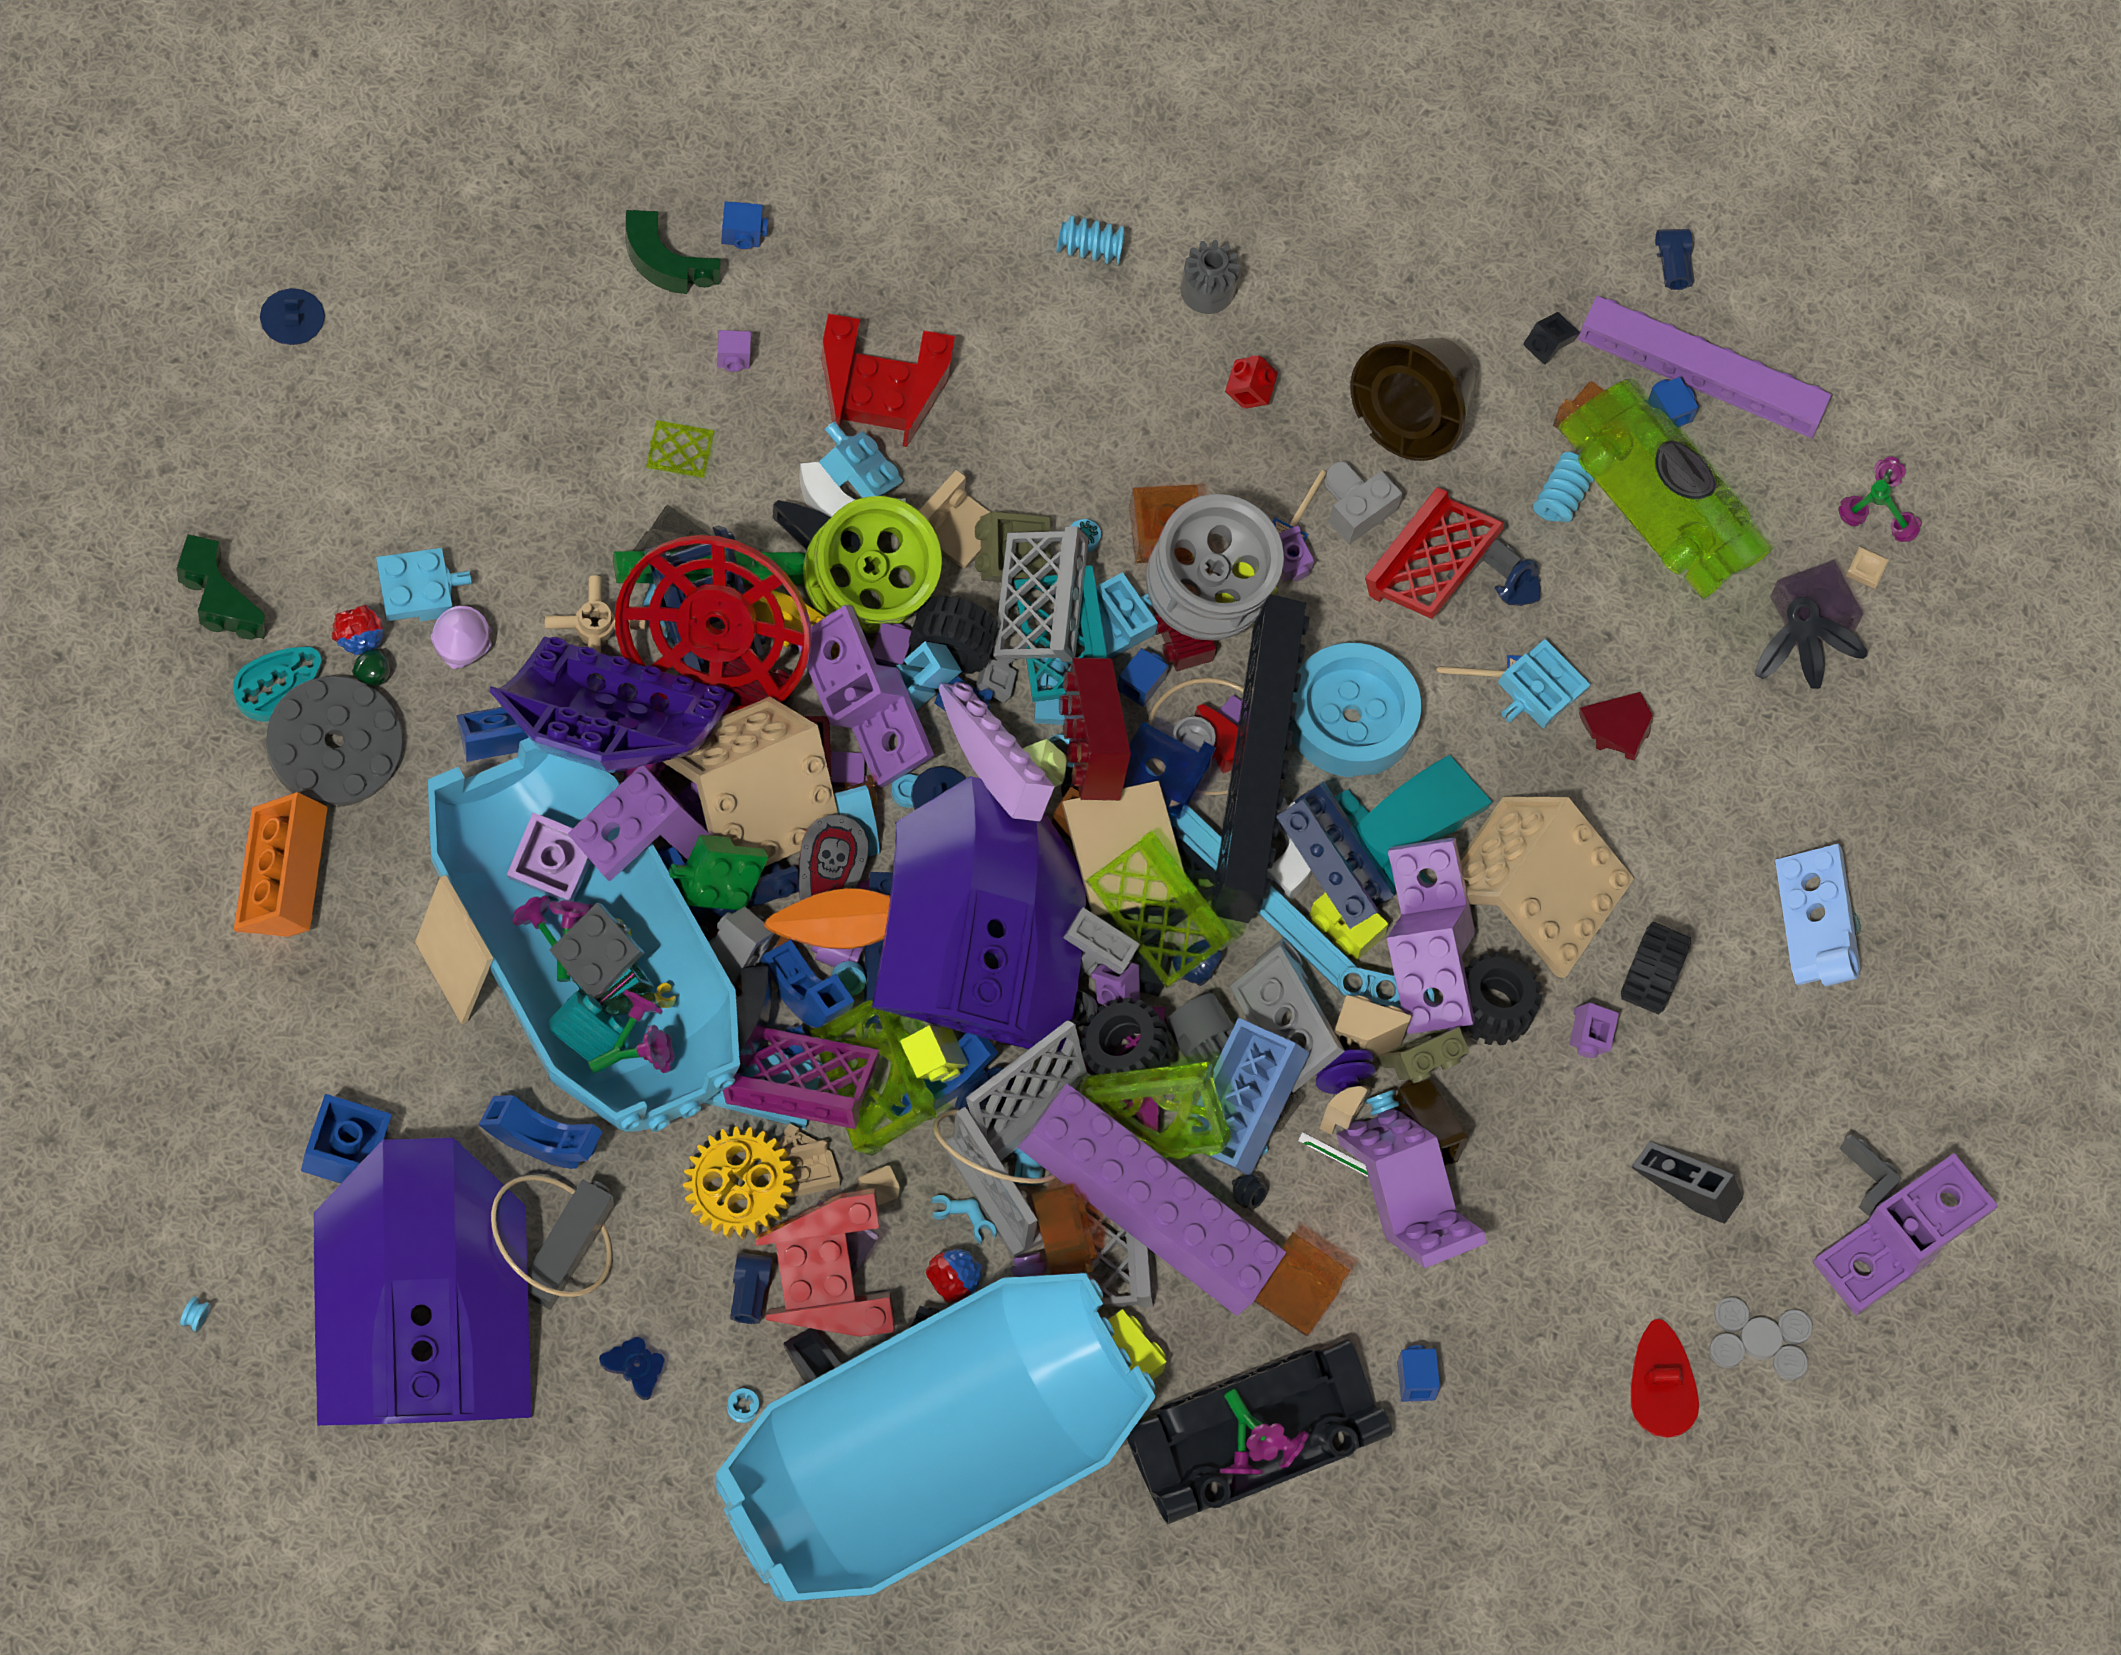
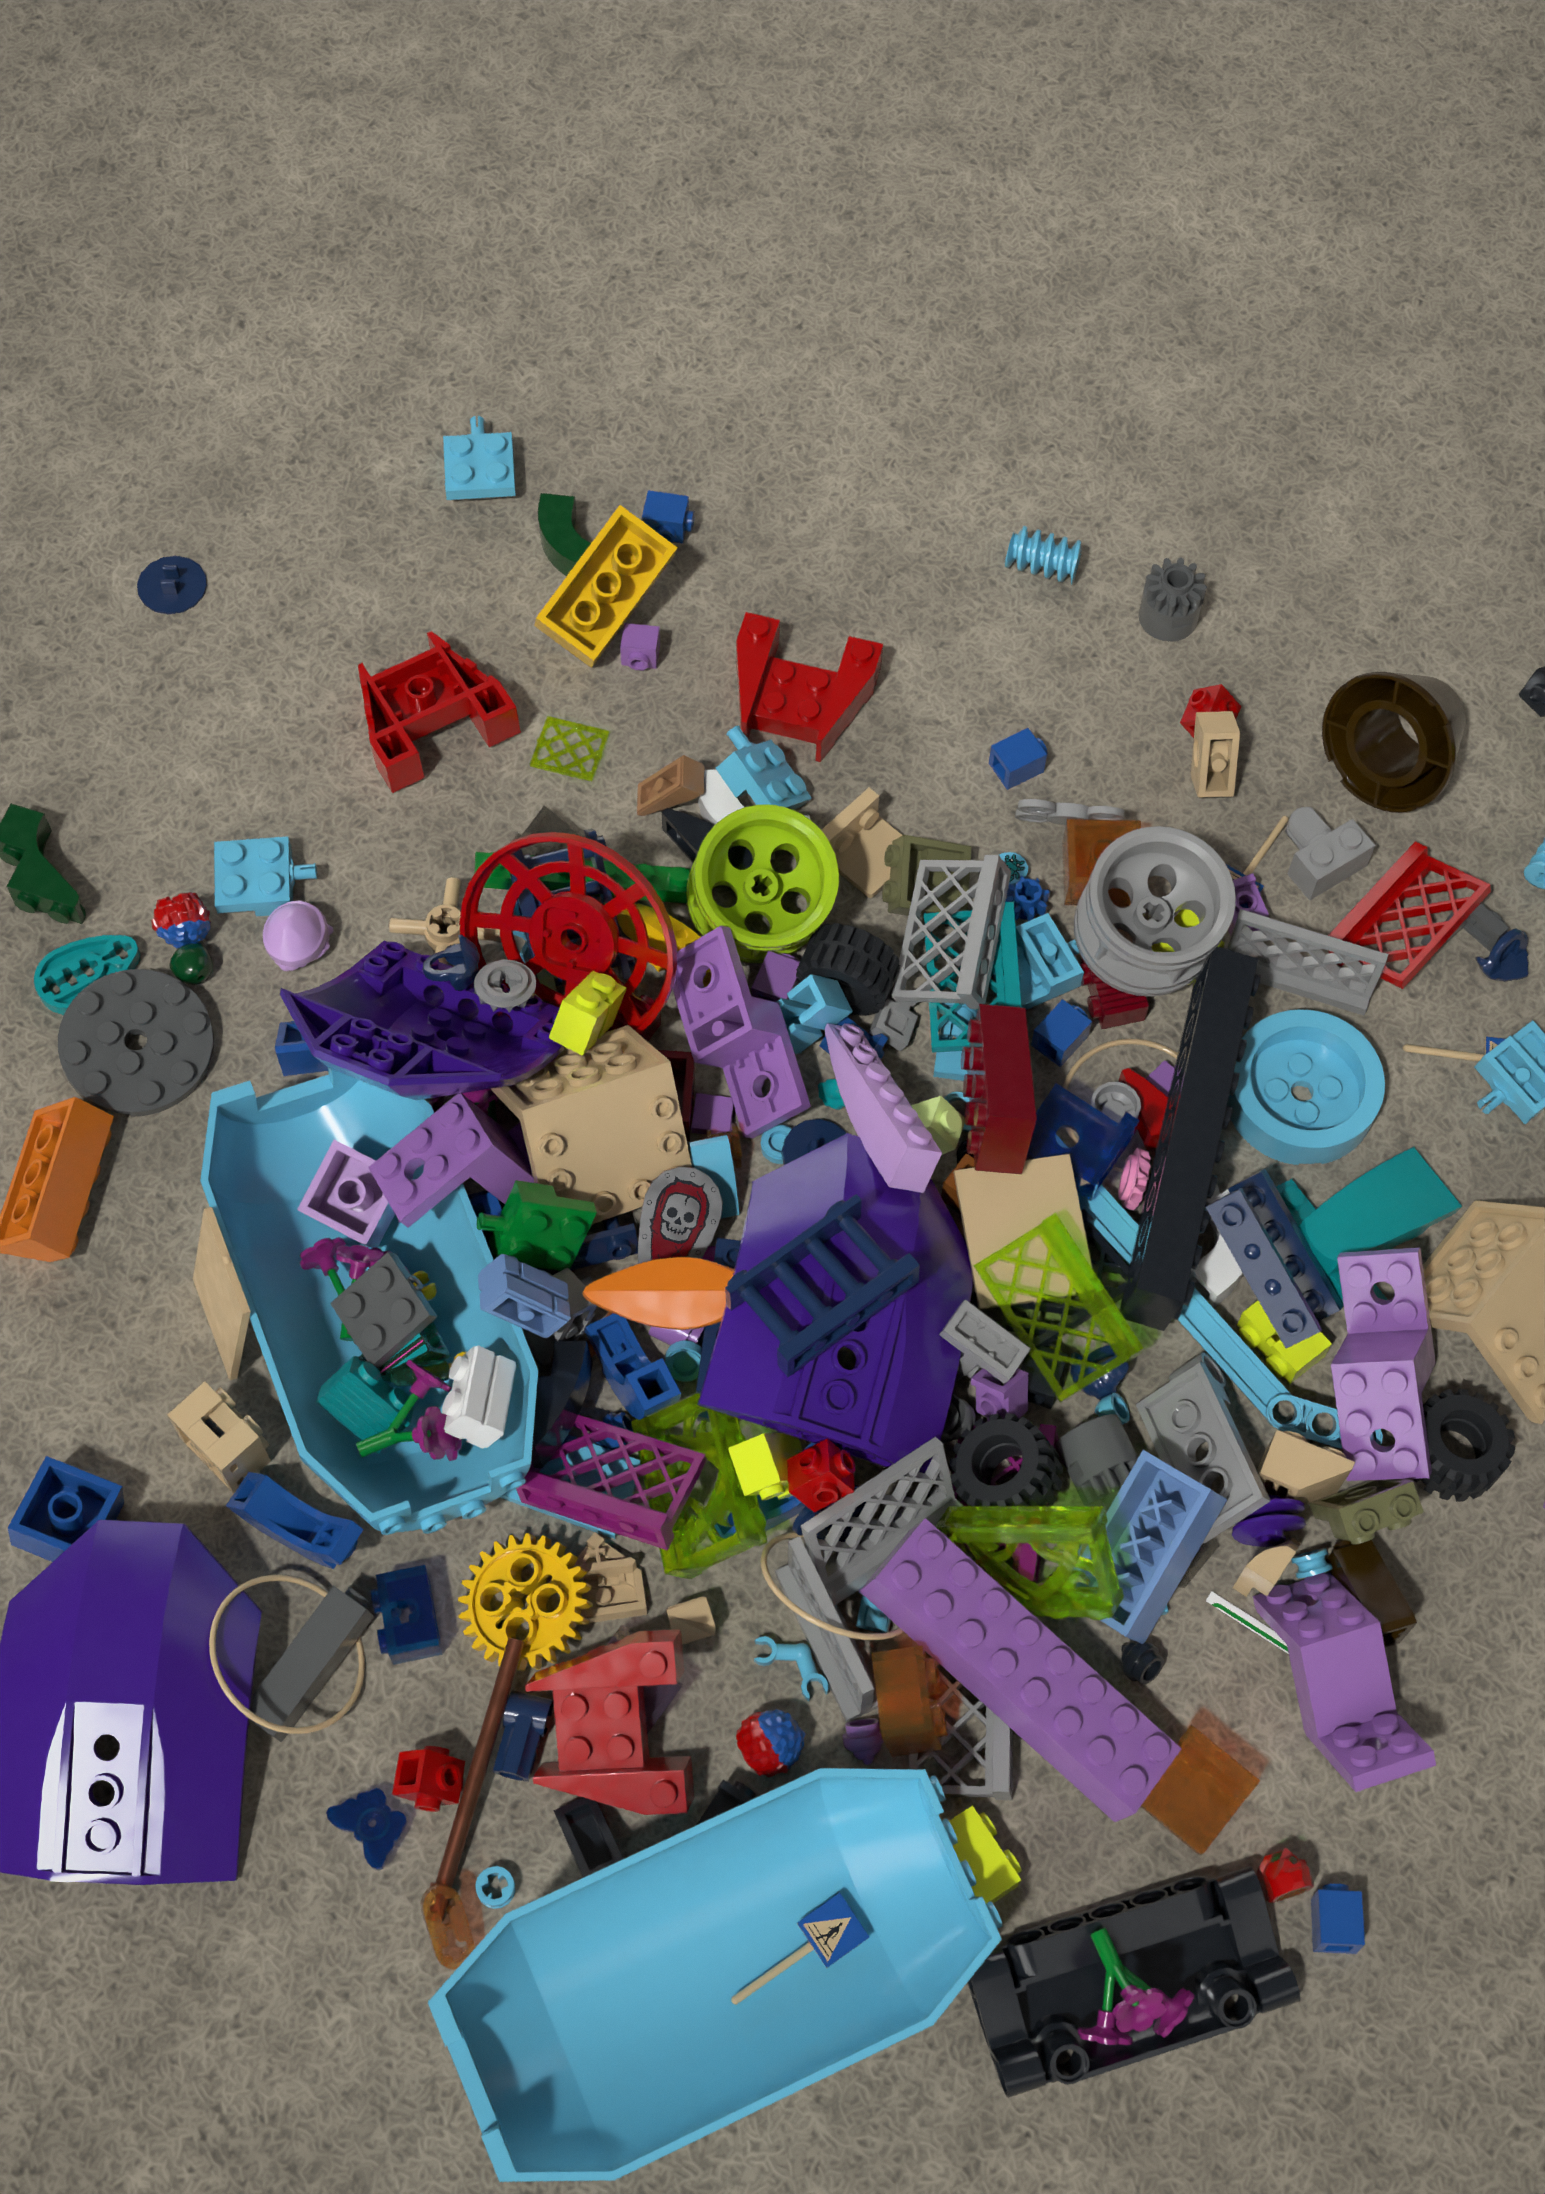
camera: 15 degrees right, 0 degrees up
(466, 1068) = (220, 1435): none -> tan piece
(544, 412) = (424, 697): none -> red wedge
(563, 183) = (479, 464): none -> medium azure plate
(619, 644) = (465, 961): none -> dark blue piece
(642, 1181) = (420, 1635): none -> clear blue brick
(669, 660) = (519, 979): none -> light grey gear
(679, 1324) = (429, 1778): none -> red brick
(688, 1015) = (479, 1396): none -> white brick
(699, 298) = (605, 586): none -> yellow brick
(700, 1409) = (477, 1770): none -> copper bar
(702, 1440) = (457, 1922): none -> clear orange beam
(717, 930) = (524, 1296): none -> medium blue brick
(737, 688) = (587, 1012): none -> neon yellow piece
(777, 479) = (671, 786): none -> medium nougat slope
(948, 744) = (830, 1094): none -> teal piece
(975, 931) = (828, 1323): none -> dark blue fence
(978, 1056) = (821, 1475): none -> red brick
(1016, 1414) = (830, 1932): none -> piece
(1084, 433) = (1018, 758): none -> blue brick
(1104, 560) = (1027, 898): none -> blue gear
(1126, 482) = (1058, 813): none -> light grey piece
(1211, 986) = (1113, 1405): none -> medium azure hinge
(1214, 798) = (1134, 1179): none -> bright pink gear
(1257, 419) = (1215, 754): none -> tan brick
(1351, 613) = (1311, 976): none -> light grey fence
(1375, 1345) = (1284, 1876): none -> red rock

